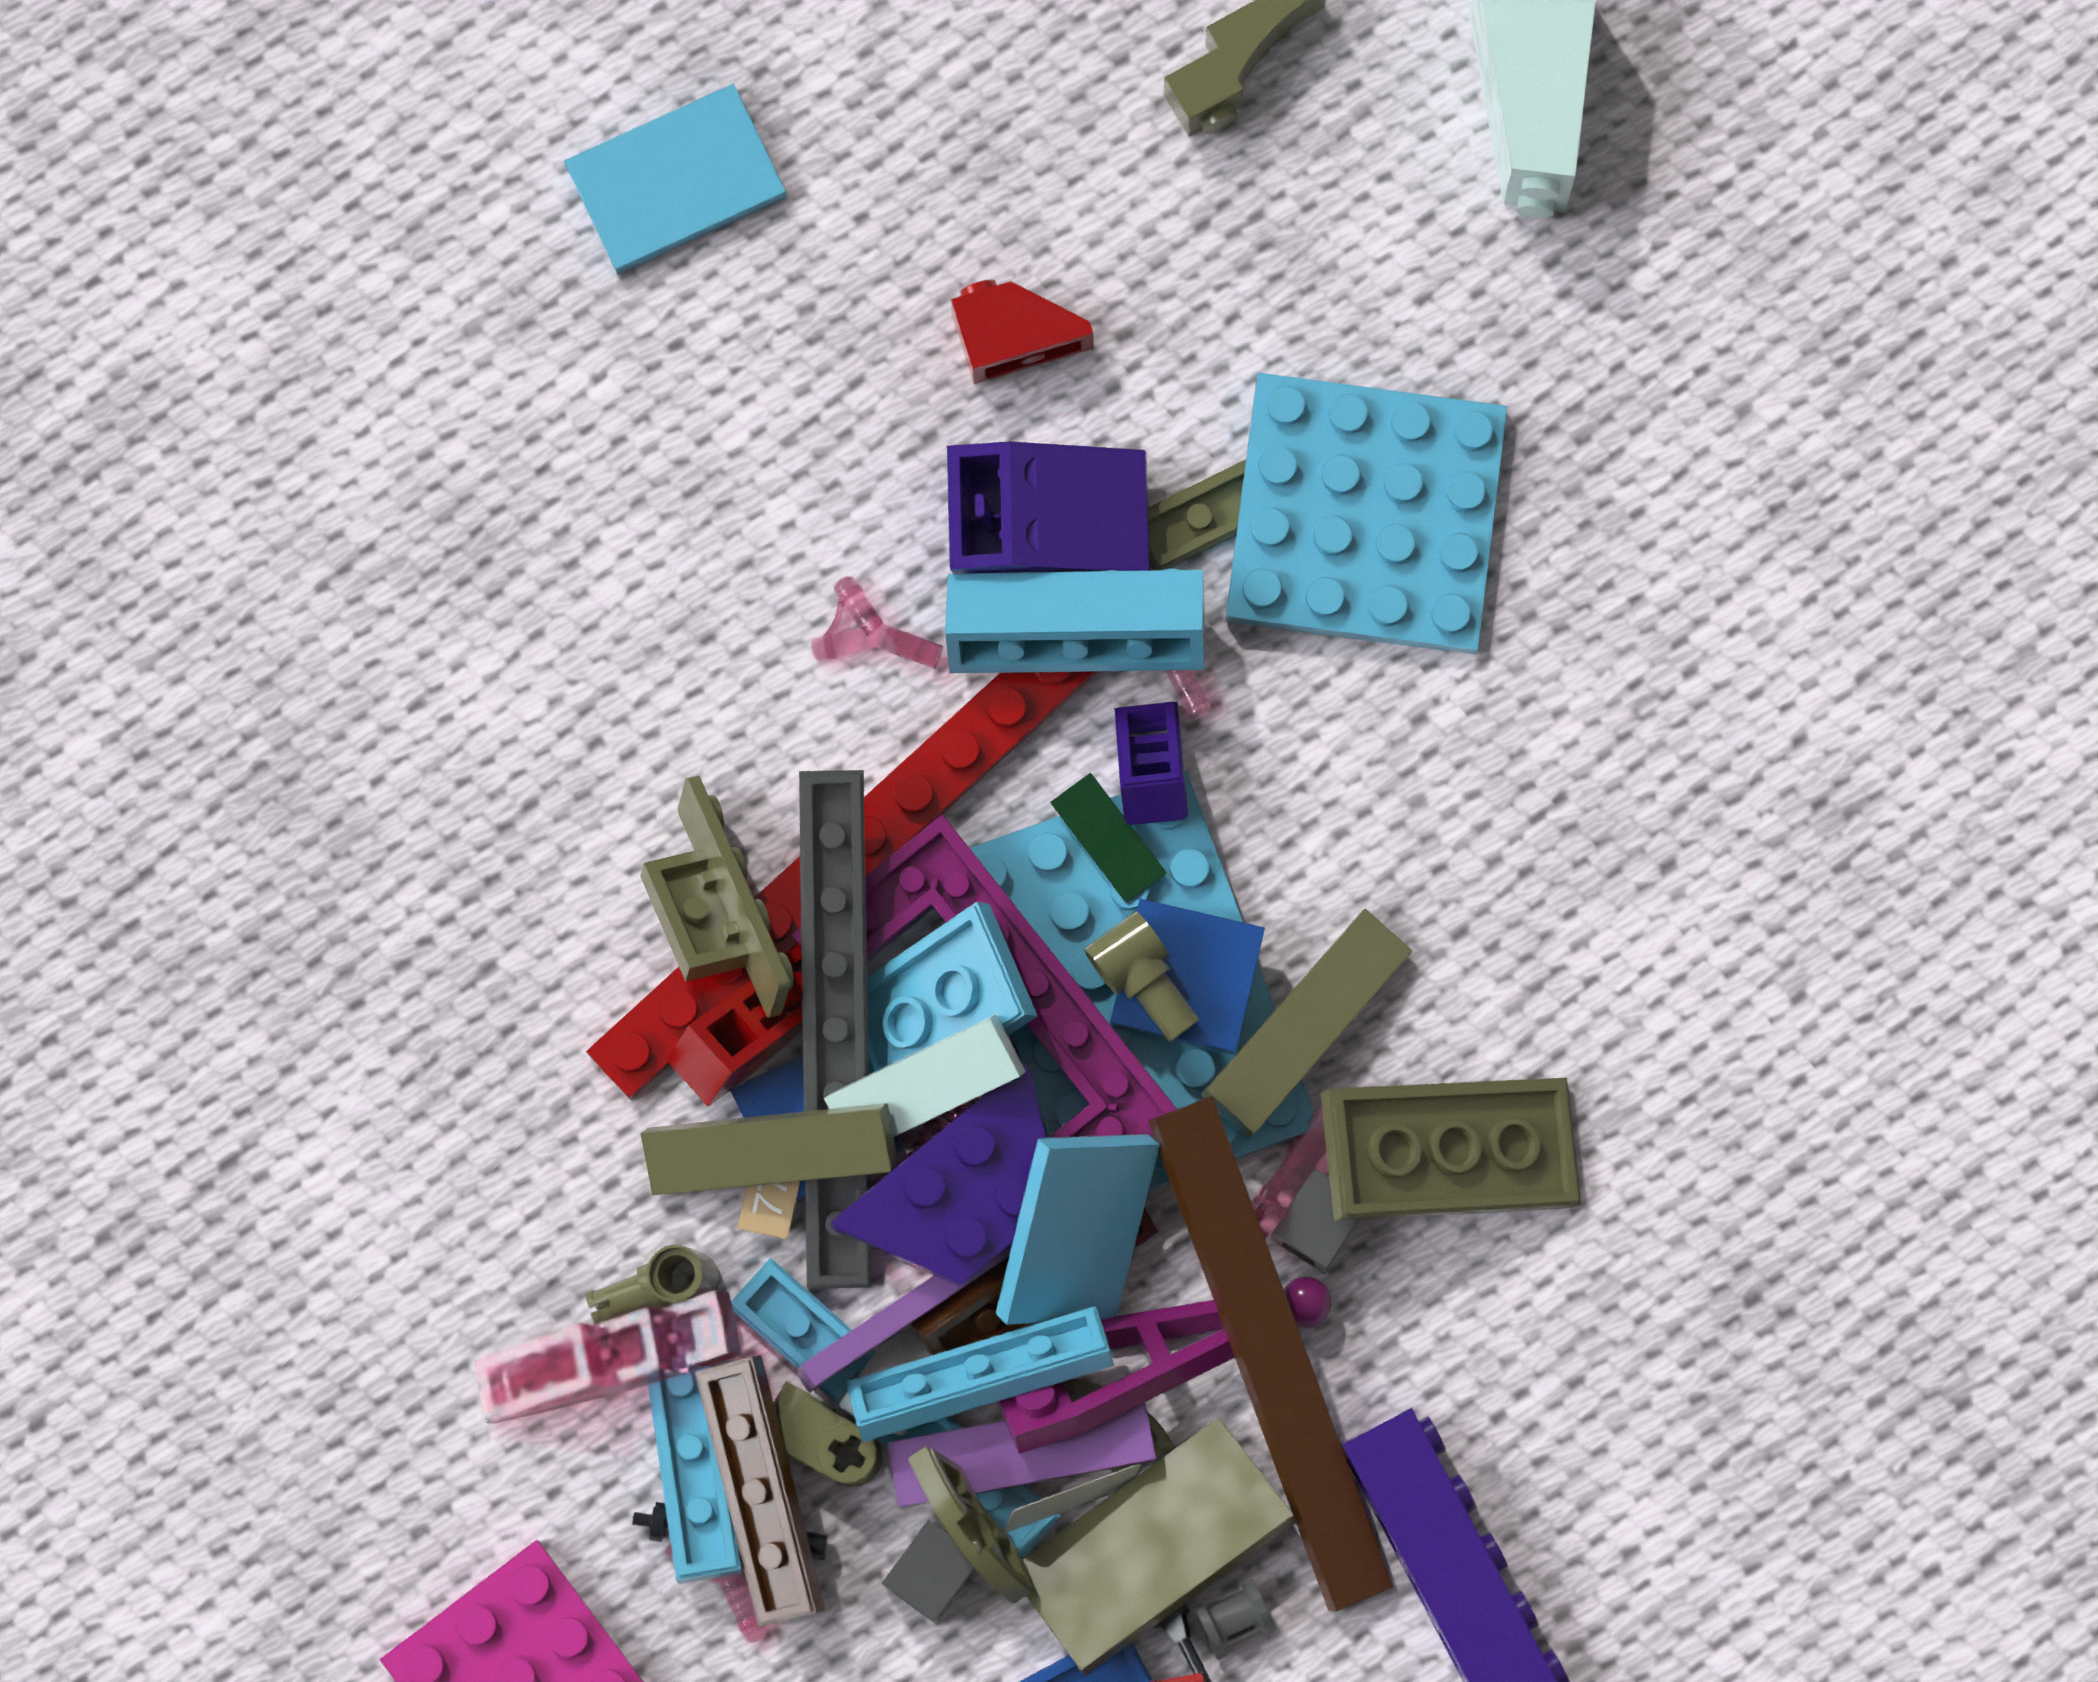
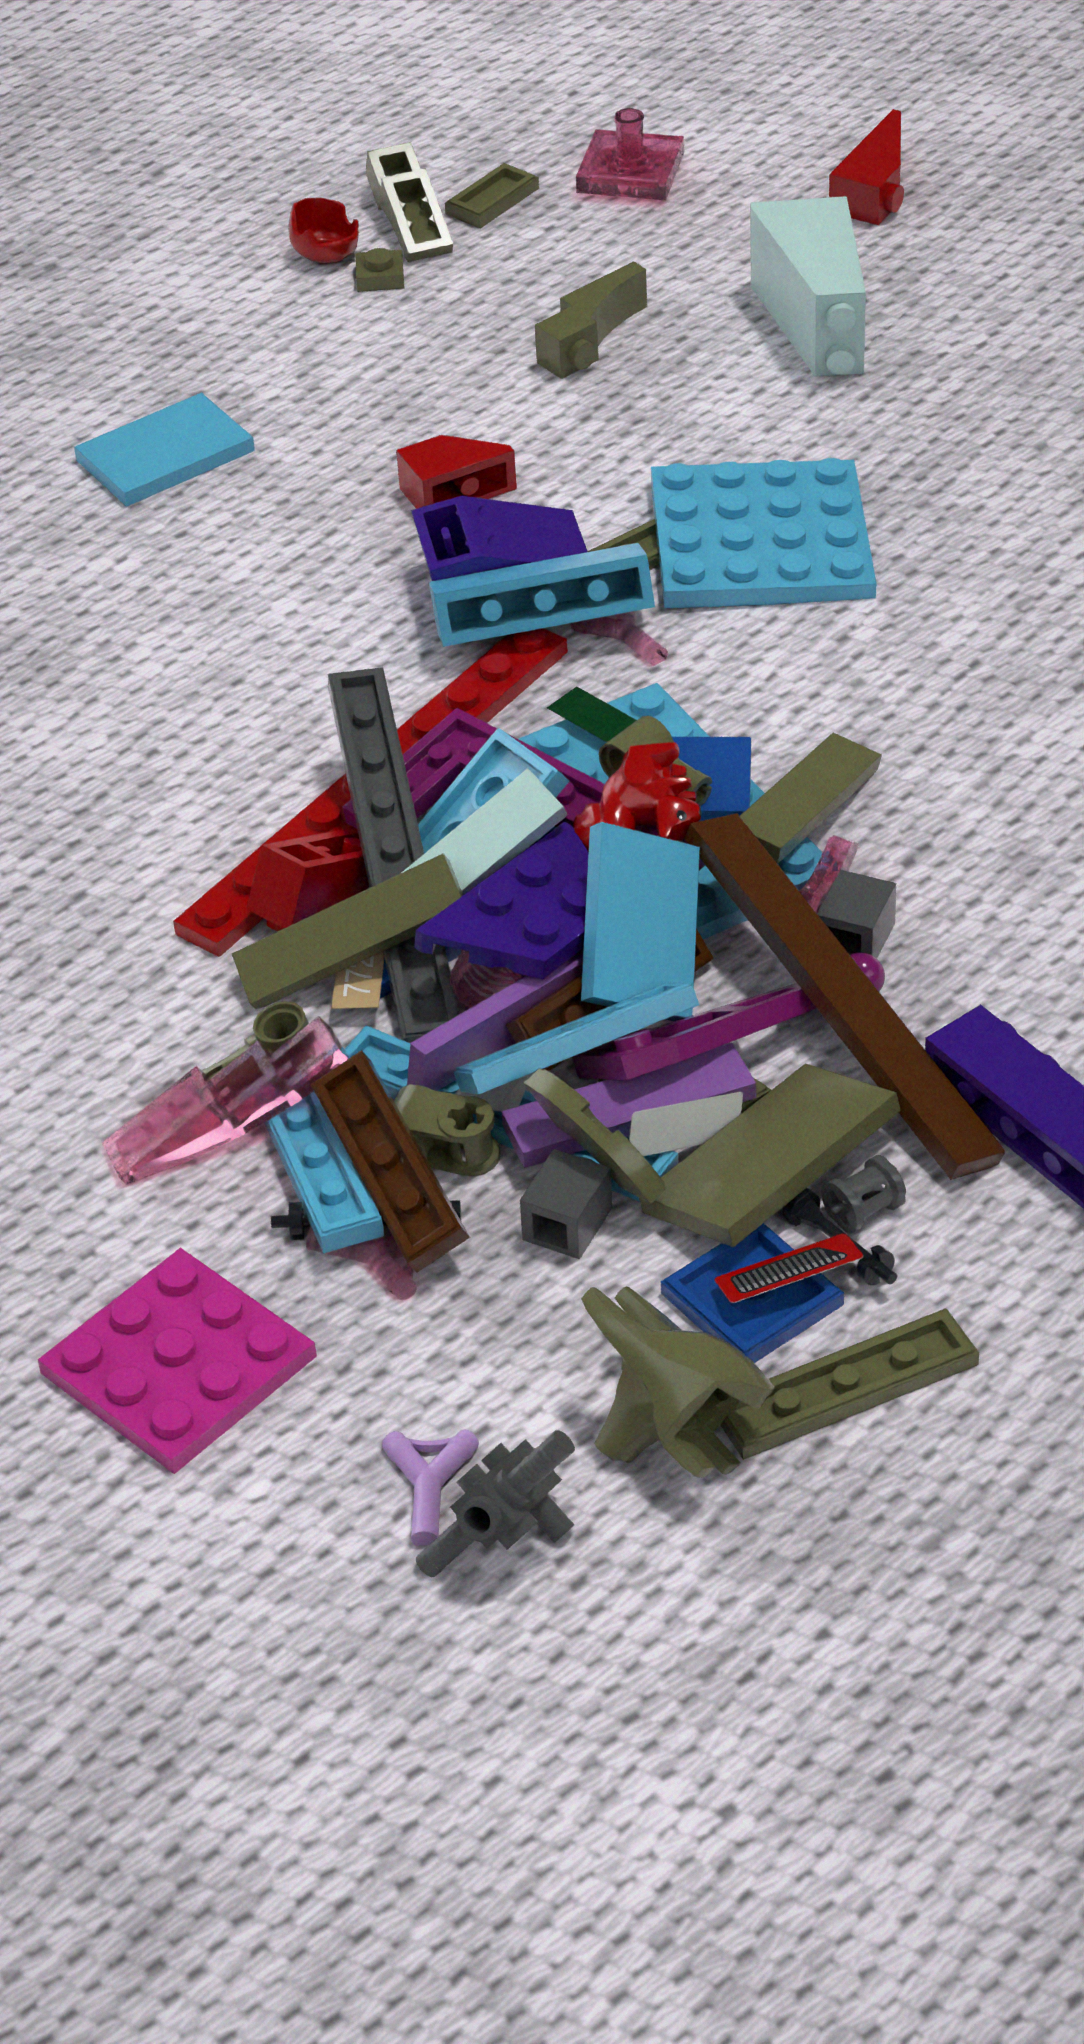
camera: 10 degrees left, 35 degrees down
(710, 908) = (276, 794): olive bracket -> none
(871, 631) = (372, 652): clear pink piece -> none
(1108, 1048) = (645, 792): none -> red animal
(1151, 764) = (629, 675): dark purple slope -> none
(1450, 1148) = (955, 846): olive tile -> none

